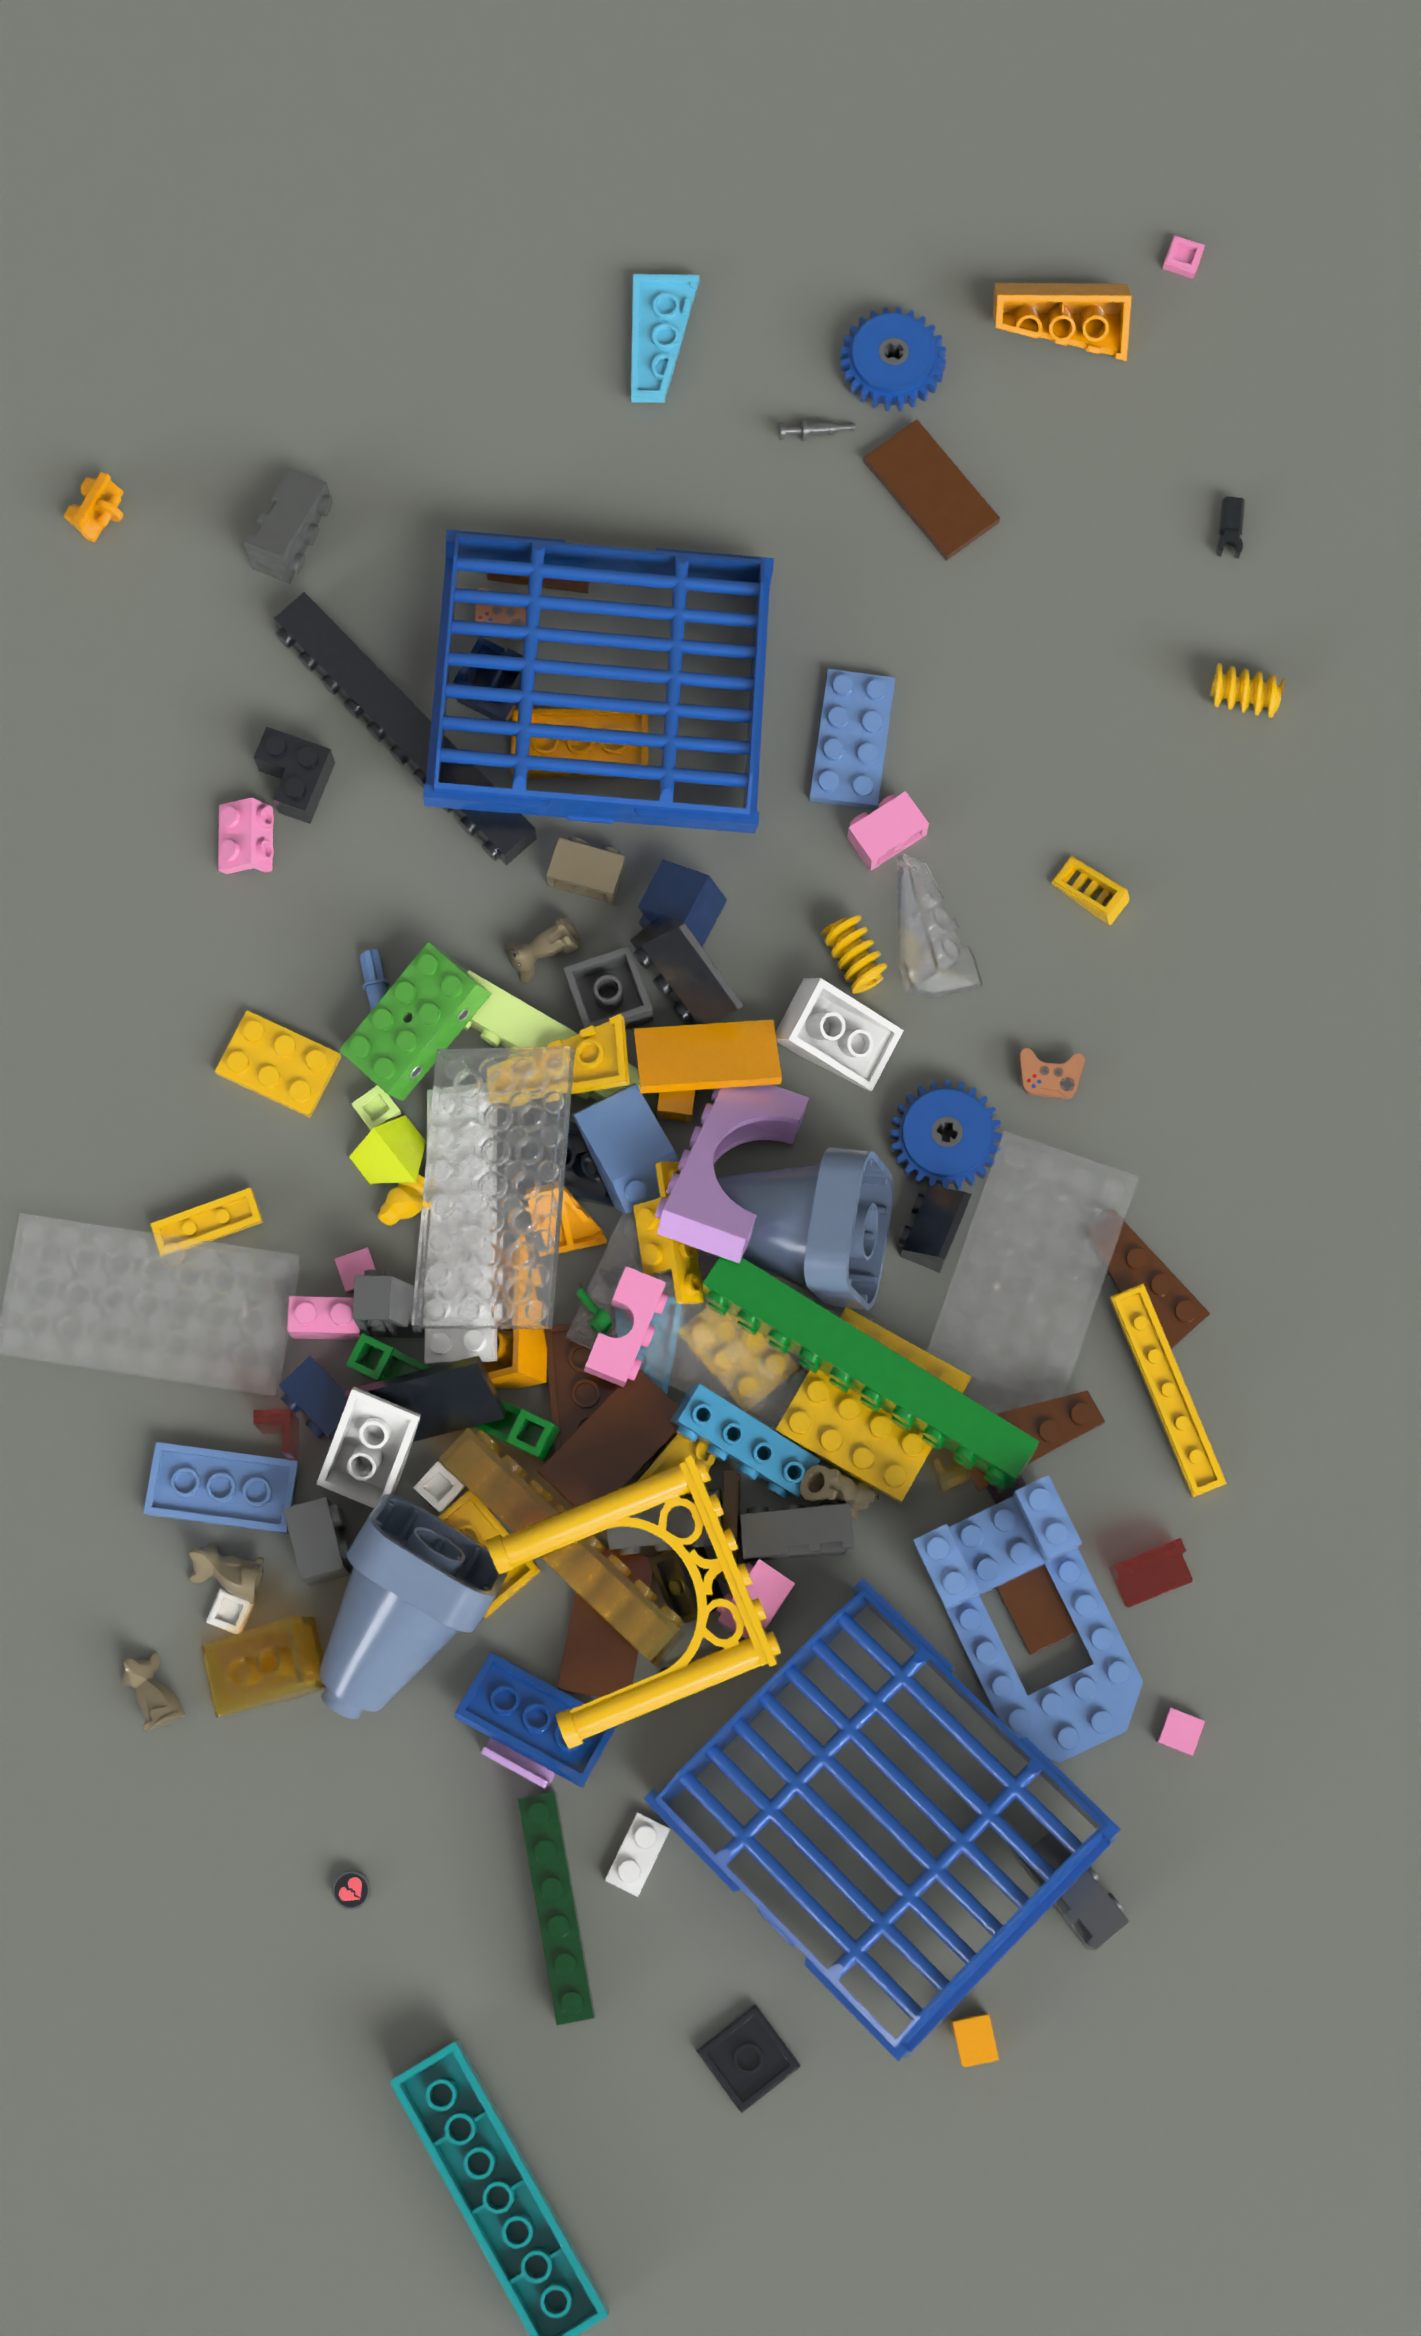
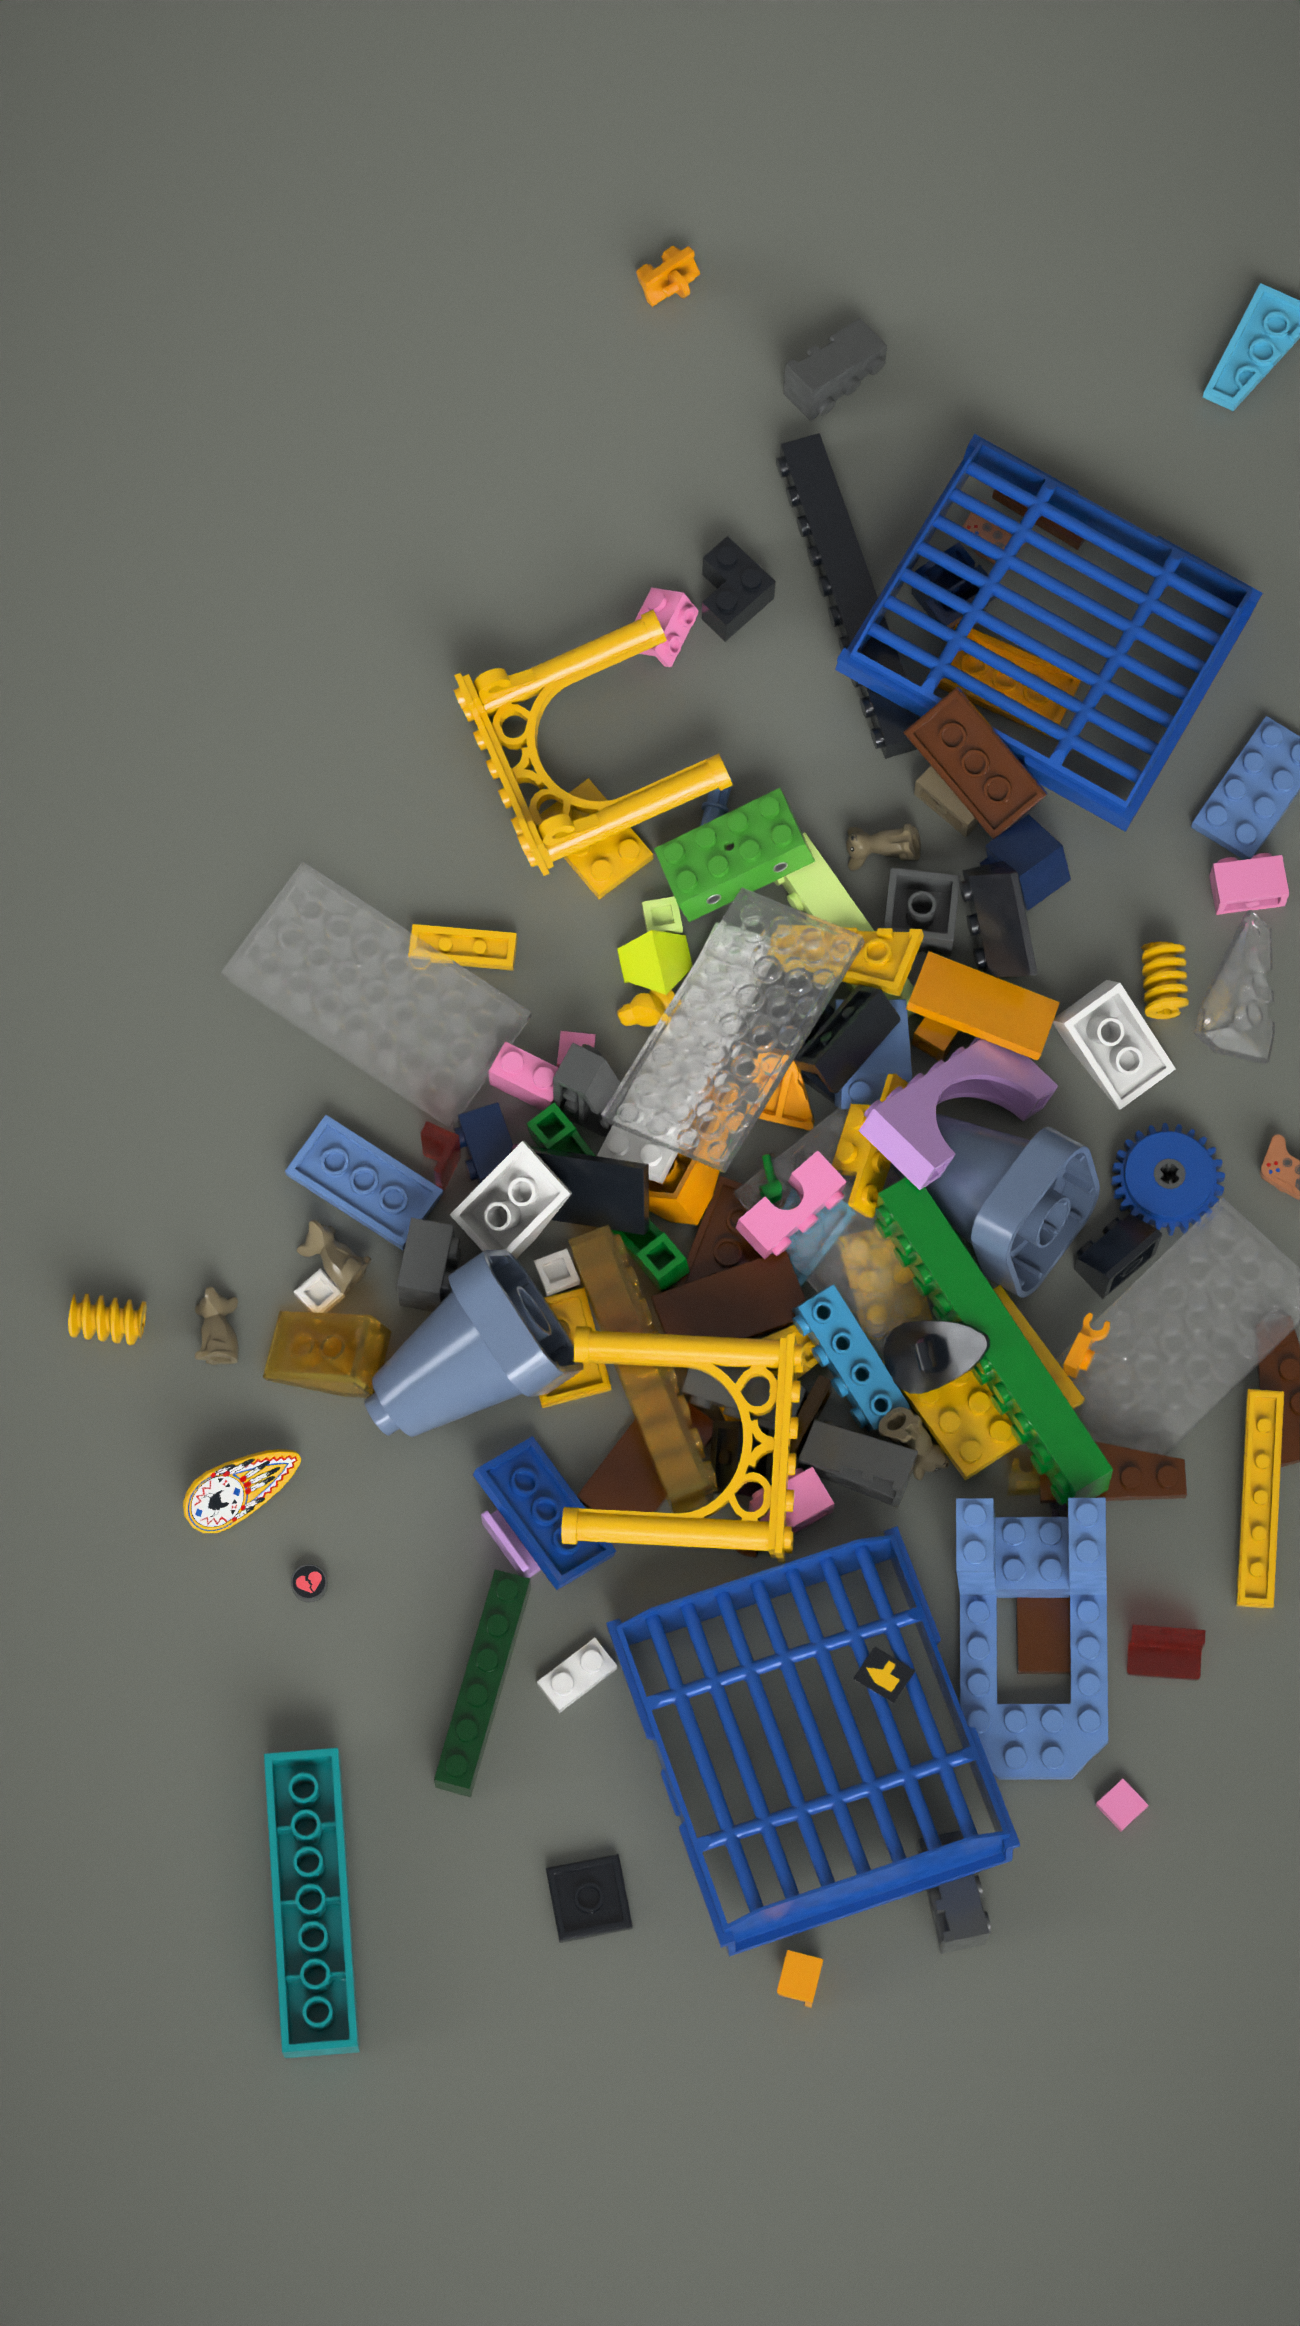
camera: 25 degrees right, 5 degrees down
(44, 1735) = (106, 1319): none -> yellow piece
(128, 972) = (559, 836): none -> yellow arch
(243, 1837) = (237, 1489): none -> shield
(594, 835) = (975, 762): none -> reddish brown tile
(602, 1146) = (848, 1037): none -> black panel
(820, 1406) = (932, 1353): none -> black shield
(921, 1729) = (884, 1674): none -> black sticker
(949, 1338) = (1080, 1354): none -> light orange plate

